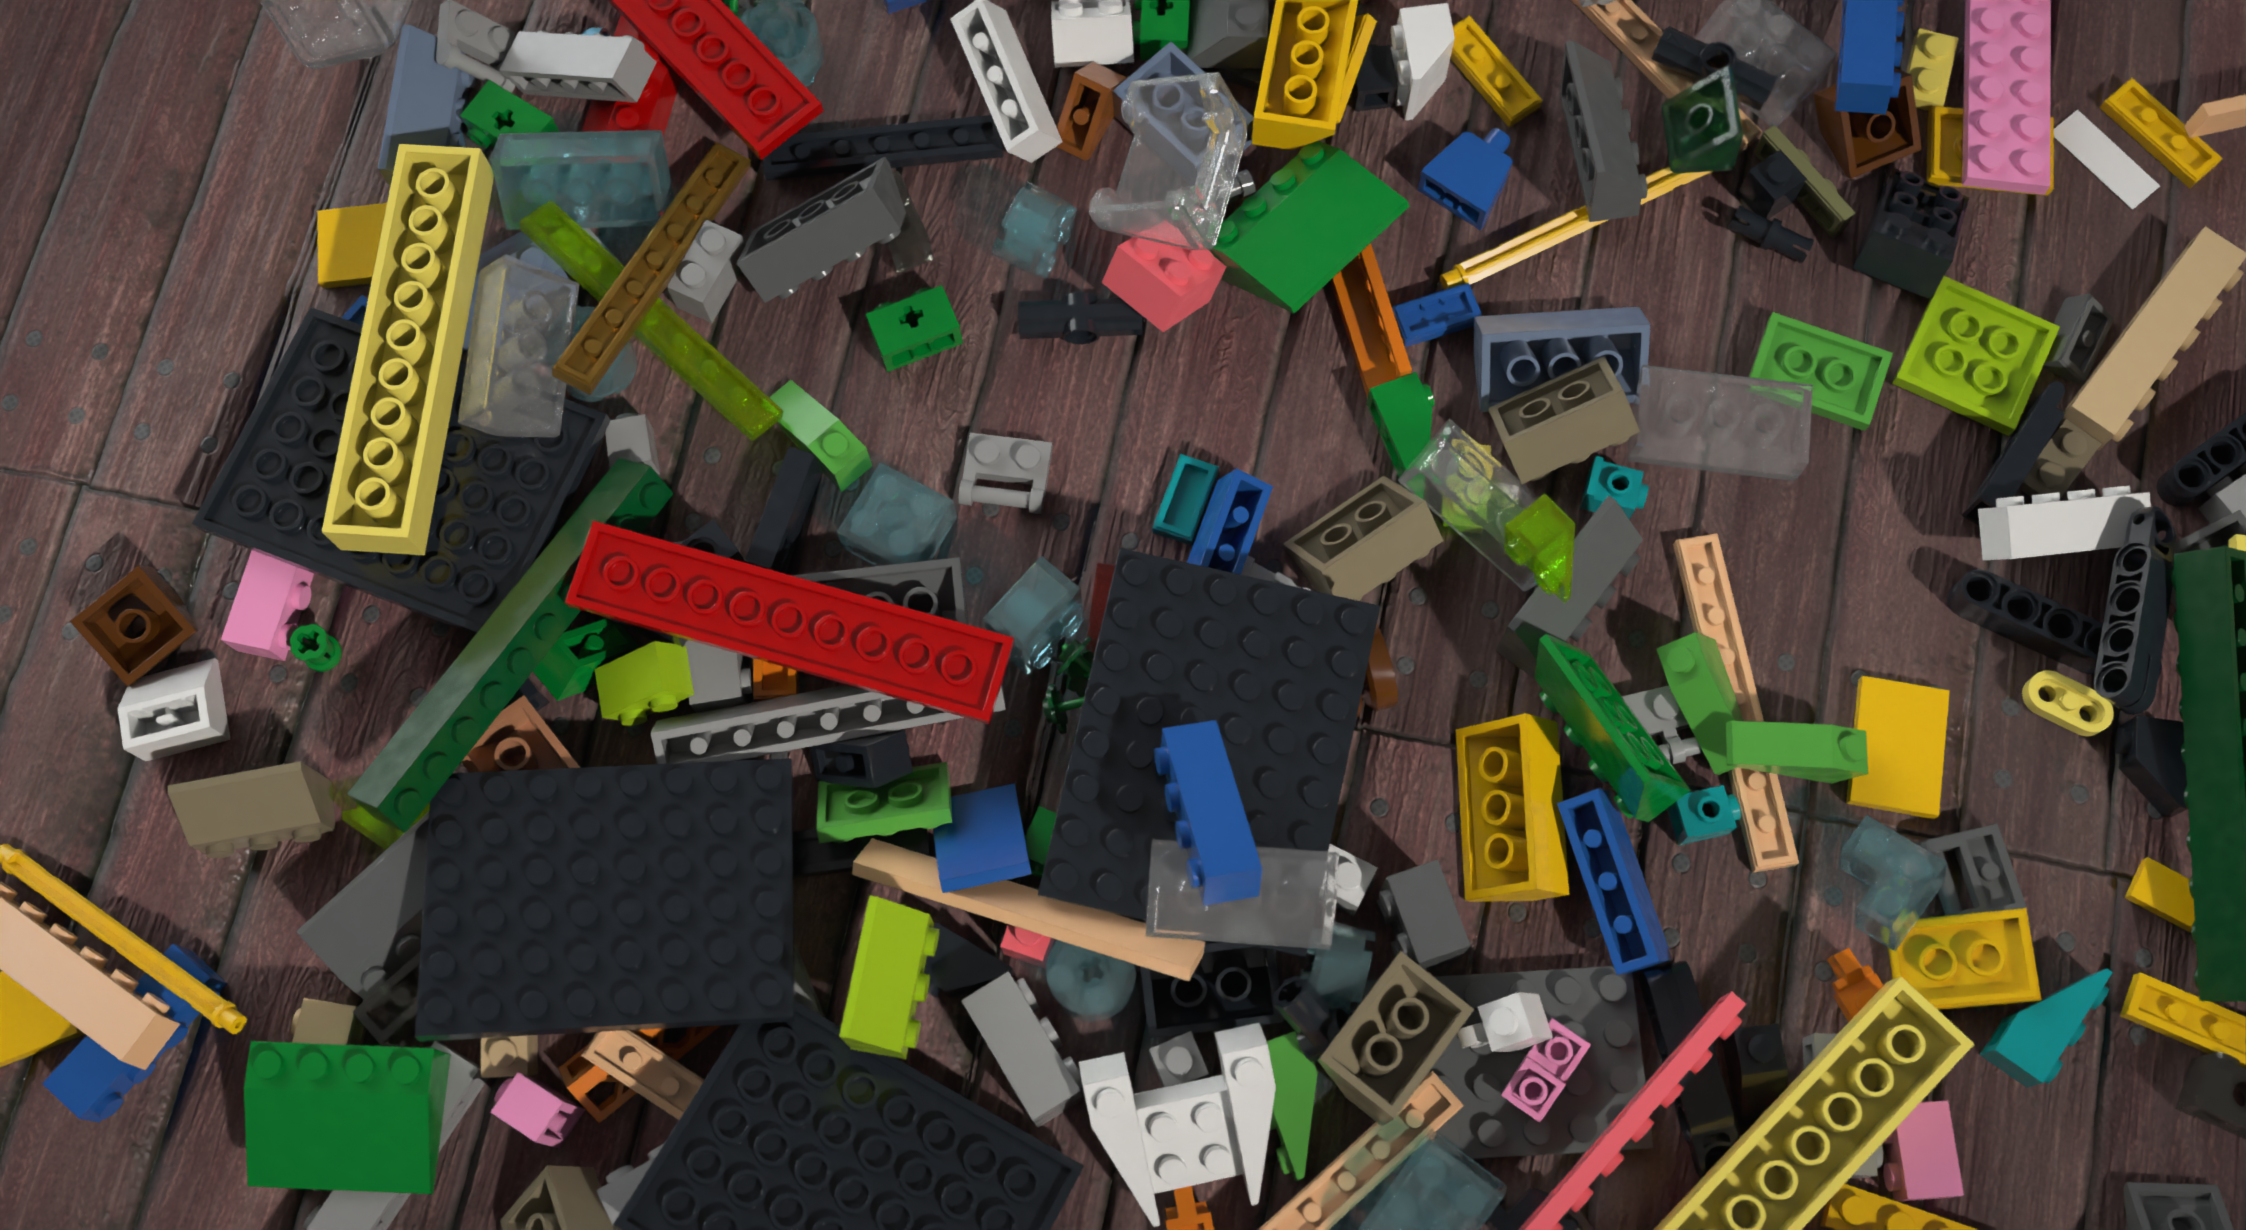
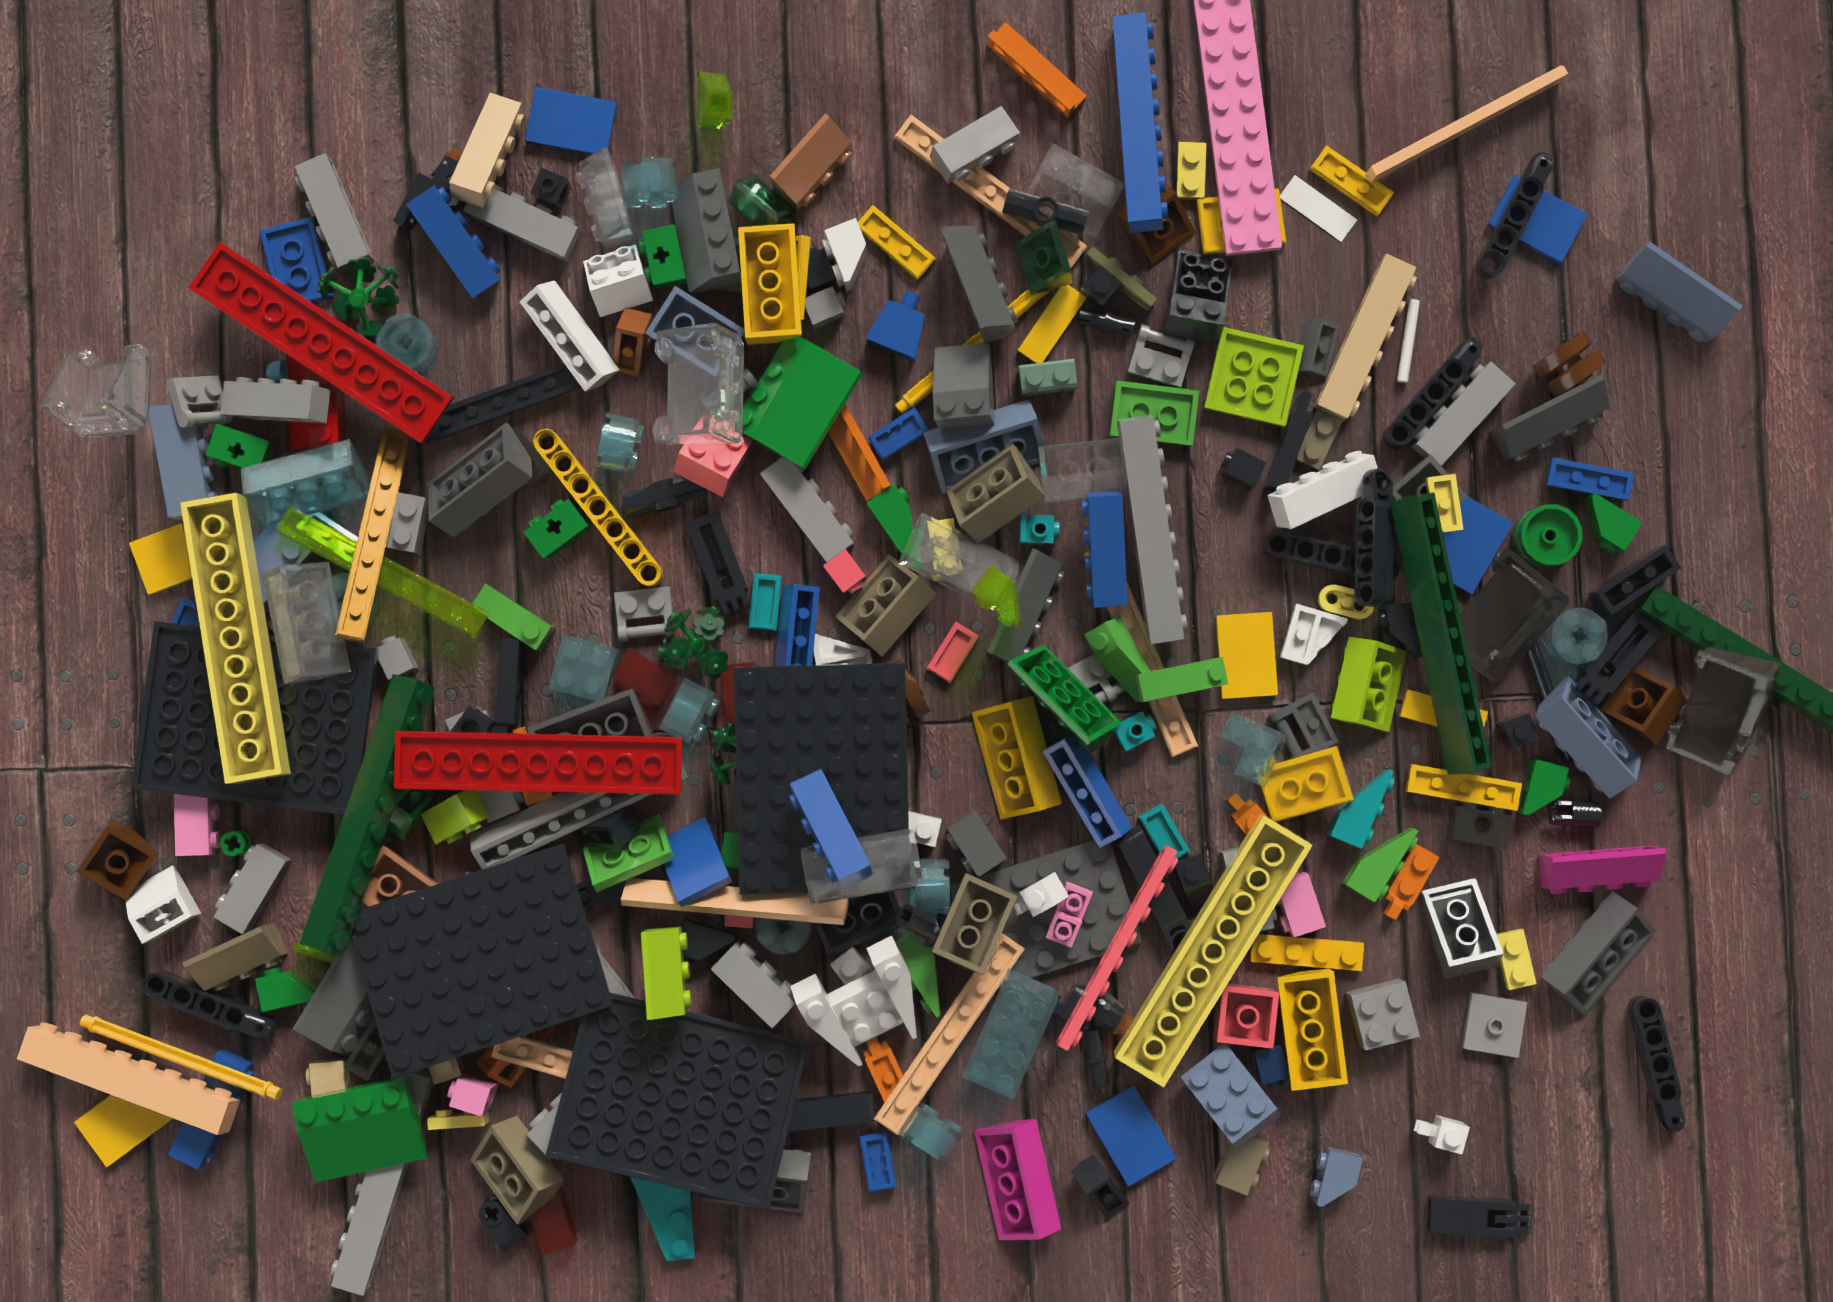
camera: 20 degrees left, 15 degrees up
(244, 912) = (251, 1020): none -> black piece
(301, 877) = (282, 989): none -> green slope
(317, 715) = (251, 887): none -> light grey brick
(483, 1143) = (447, 1119): none -> light yellow plate
(986, 330) = (589, 498): none -> yellow beam
(986, 559) = (644, 677): none -> clear red brick
(1079, 538) = (681, 650): none -> dark green plant
(1133, 418) = (715, 555): none -> black hinge
(1281, 383) = (807, 508): none -> light grey brick
(1314, 481) = (845, 572): none -> coral brick
(1370, 126) = (824, 307): none -> light grey brick
(1446, 635) = (952, 652): none -> coral tile
(1548, 265) = (963, 386): none -> dark grey slope
(1672, 285) = (1047, 377): none -> sand green brick
(1690, 222) = (1051, 324): none -> yellow tile
(1716, 528) = (1106, 548): none -> blue brick
(1717, 975) = (1163, 830): none -> teal tile
(1792, 515) = (1150, 528): none -> light grey brick
(1834, 309) = (1158, 365): none -> light grey plate
(1939, 474) = (1242, 468): none -> black brick
(2003, 735) = (1309, 633): none -> white wing
(2051, 1129) = (1374, 869): none -> bright green slope
(2086, 832) = (1368, 683): none -> lime slope
(2107, 1160) = (1409, 880): none -> orange hinge
(2215, 360) = (1408, 340): none -> white bar

